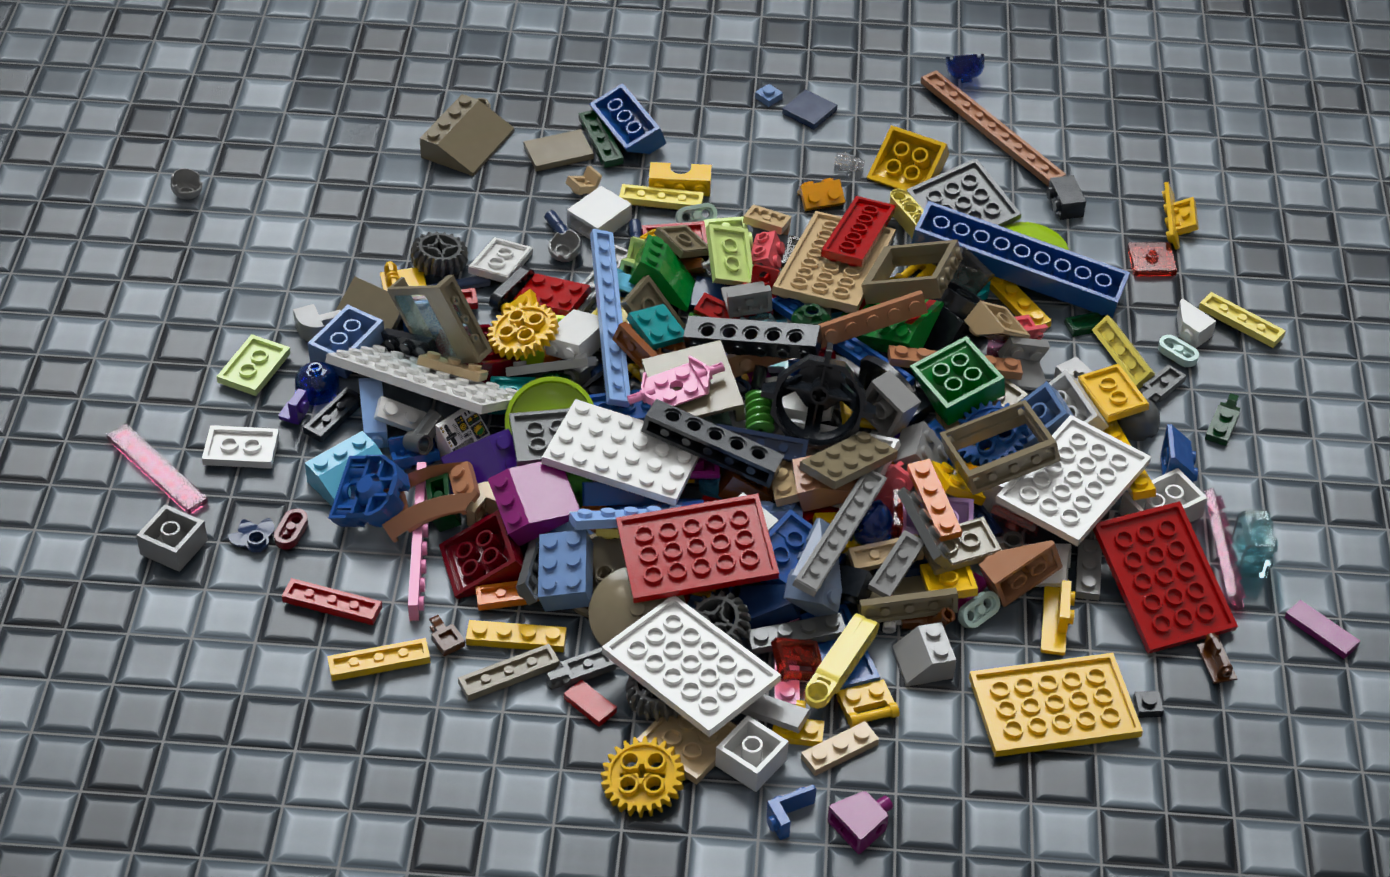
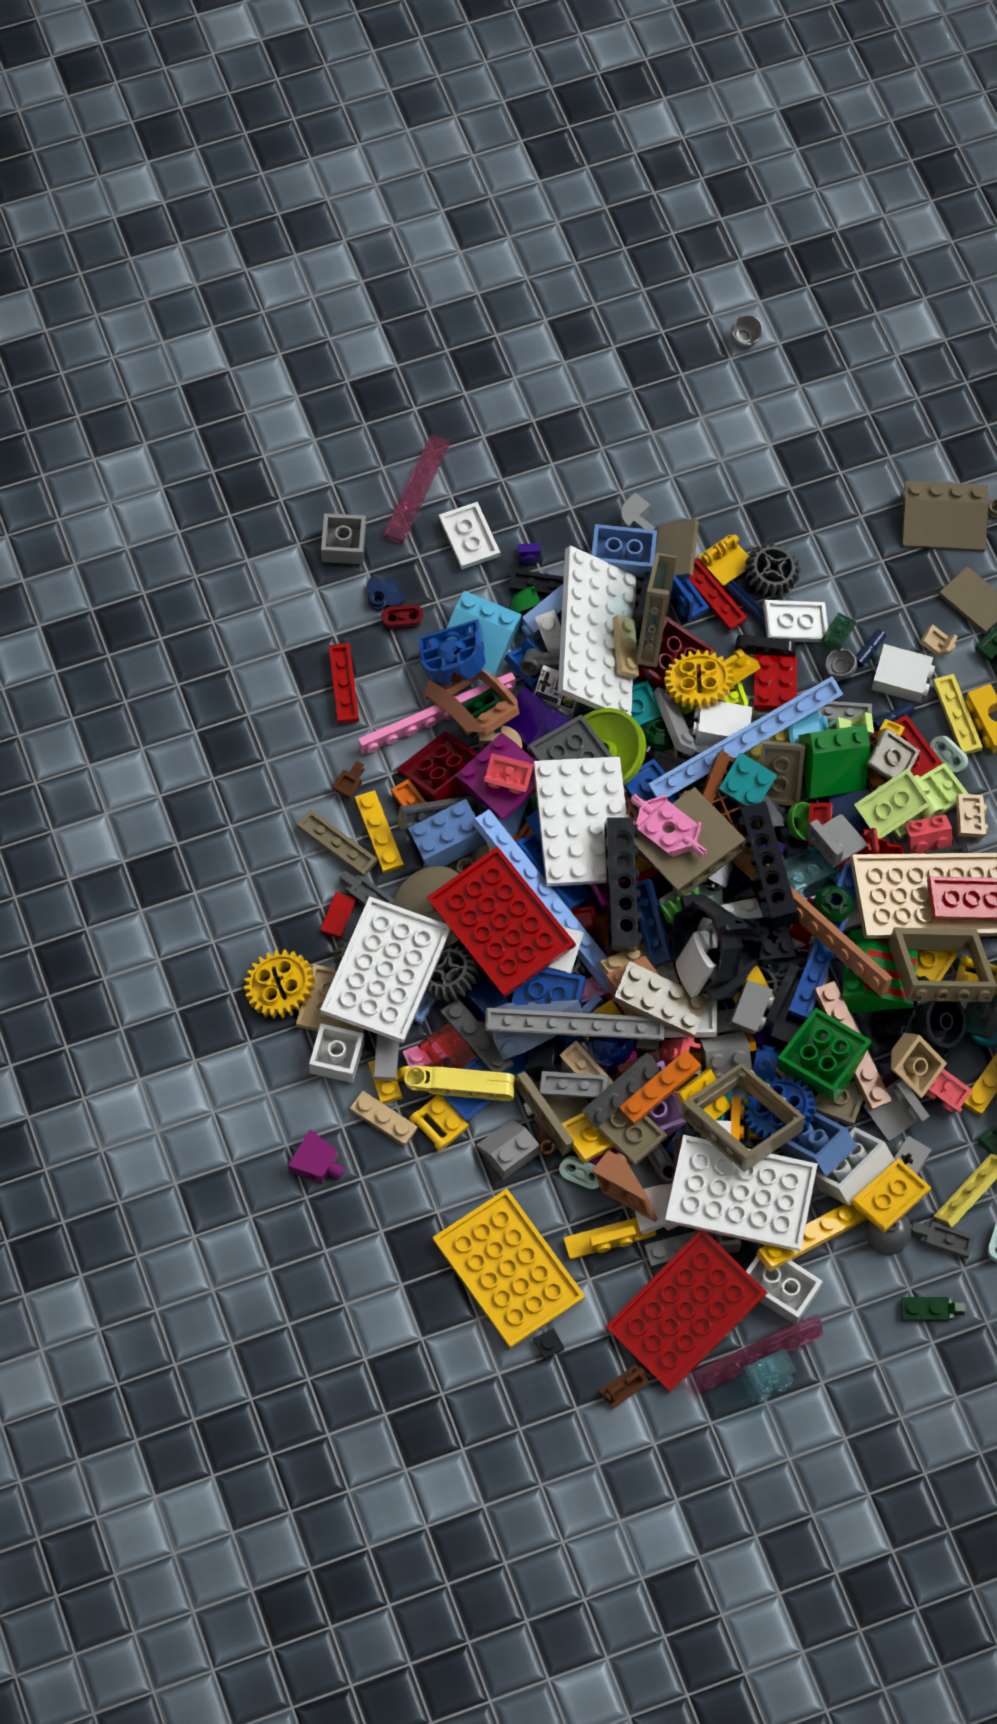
camera: 65 degrees right, 20 degrees up
(253, 365) = (564, 496): yellowish green plate -> none
(319, 381) = (558, 547): clear blue cylinder -> none
(345, 426) = (524, 600): none -> green brick
(378, 659) = (303, 745): yellow plate -> none
(532, 236) = (838, 631): none -> clear green plate
(541, 479) = (508, 773): none -> coral bracket
(781, 805) = (286, 1098): blue bracket -> none
(832, 415) = (694, 965): none -> white slope
(1178, 453) = (845, 1280): blue slope -> none
(1322, 629) = (708, 1465): tile -> none

